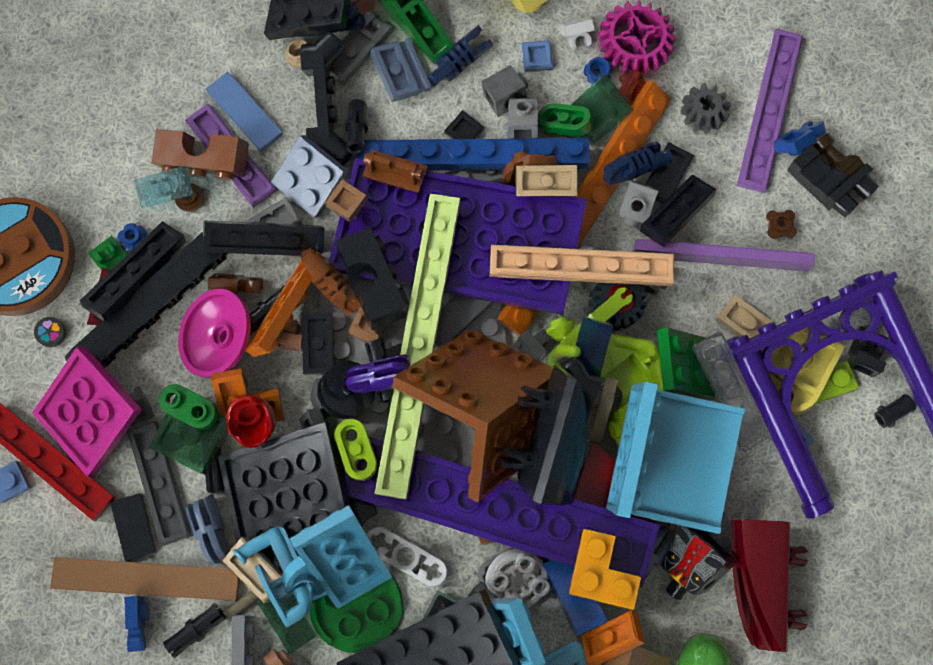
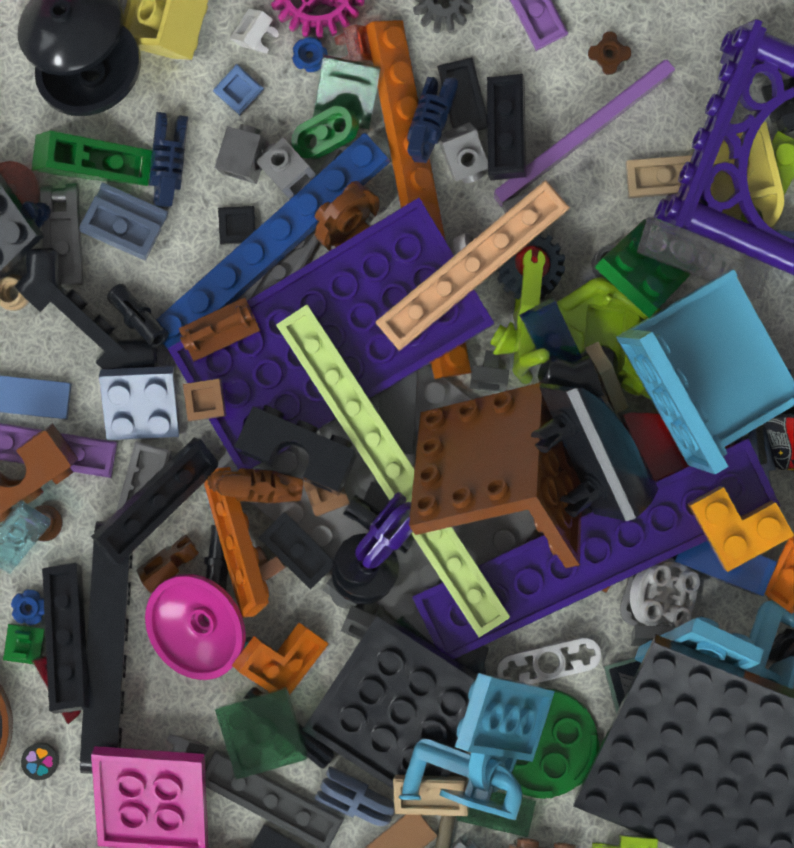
camera: 40 degrees left, 10 degrees up
(187, 405) = (238, 712): green plate -> none
(250, 420) = (307, 674): red hair -> none
(356, 450) = (425, 614): lime plate -> none
(546, 180) = (369, 215): tan plate -> none

